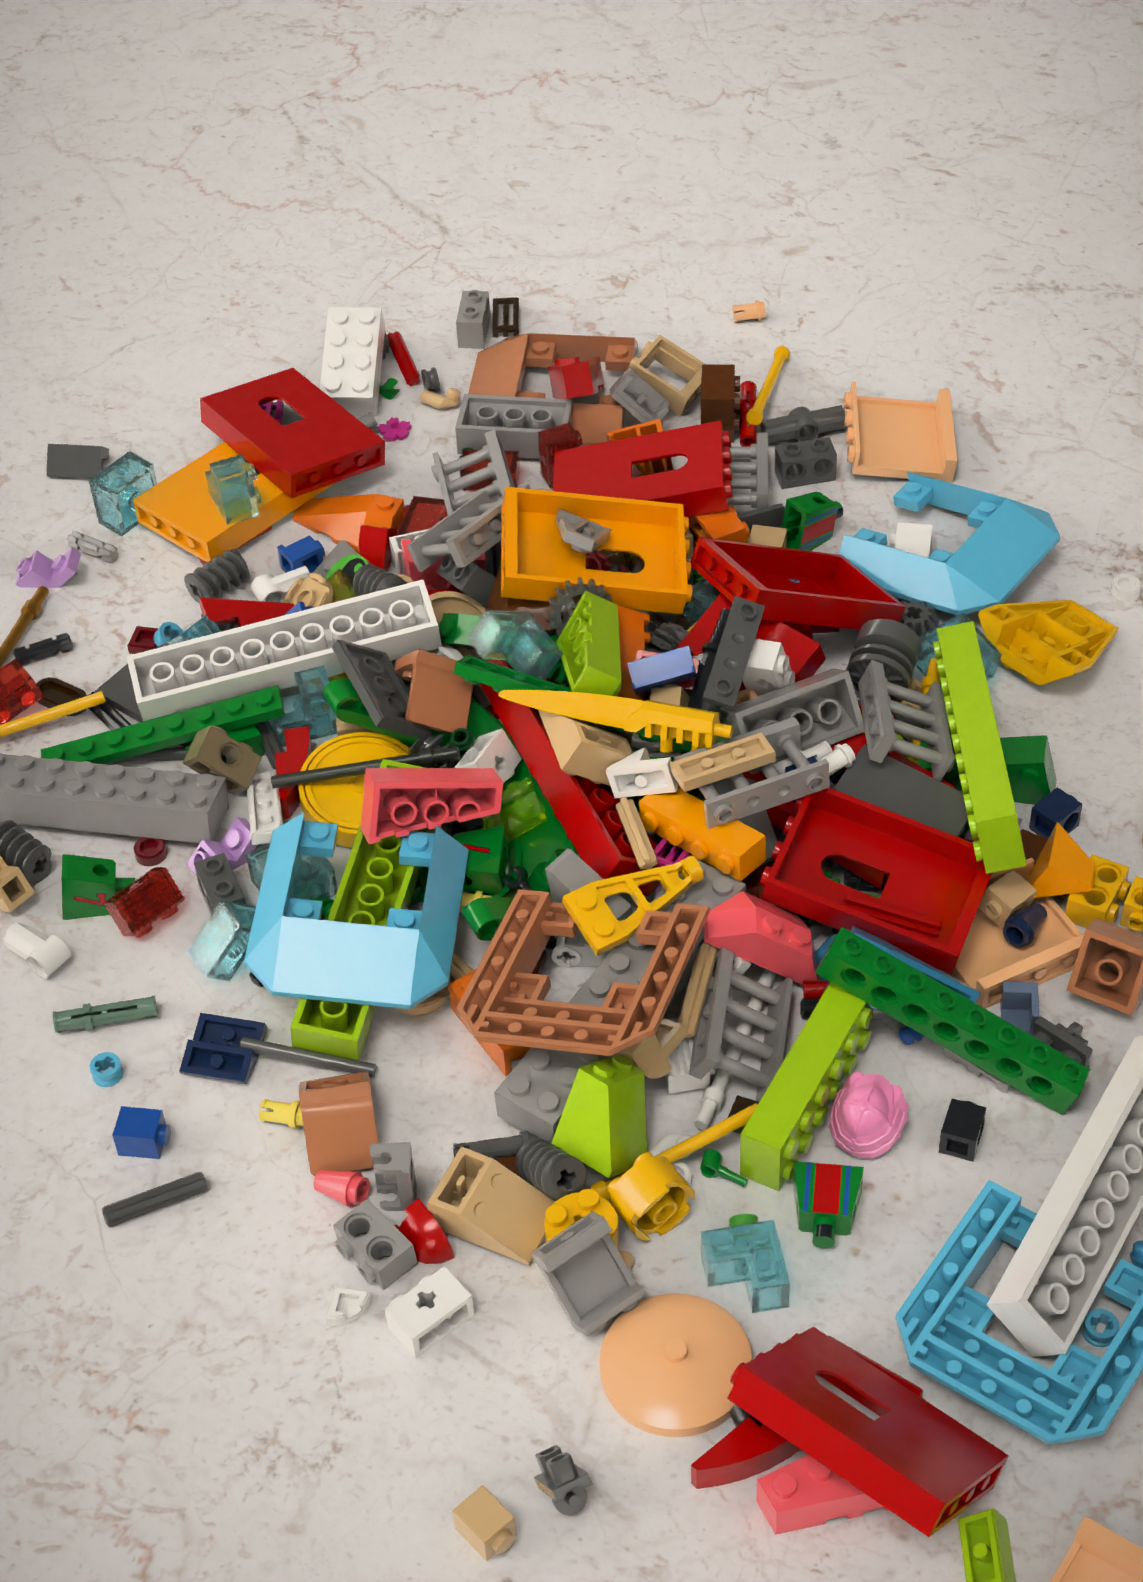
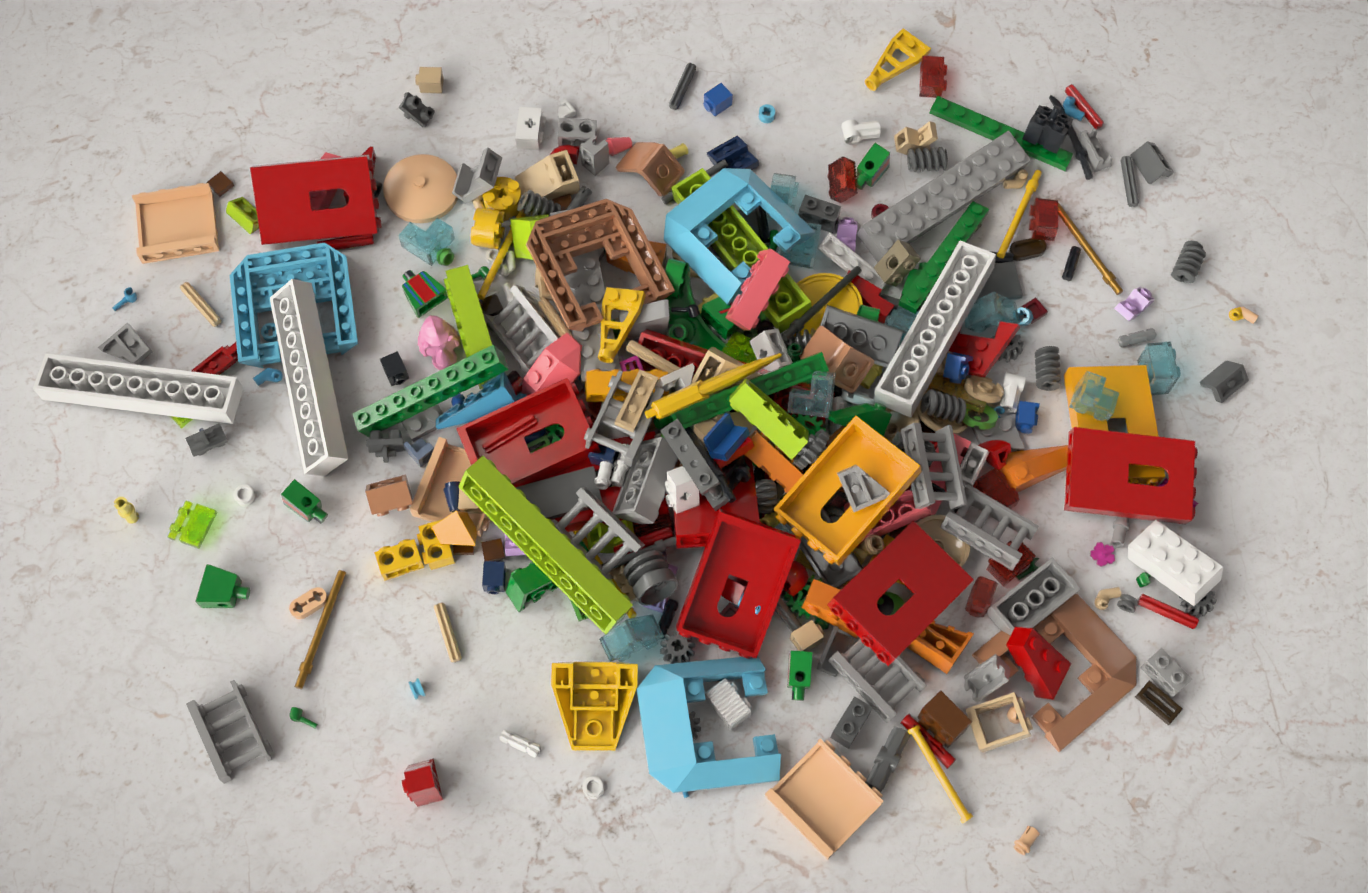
camera: 130 degrees right, 20 degrees up
(104, 1014) = (800, 126): sand green pin -> none

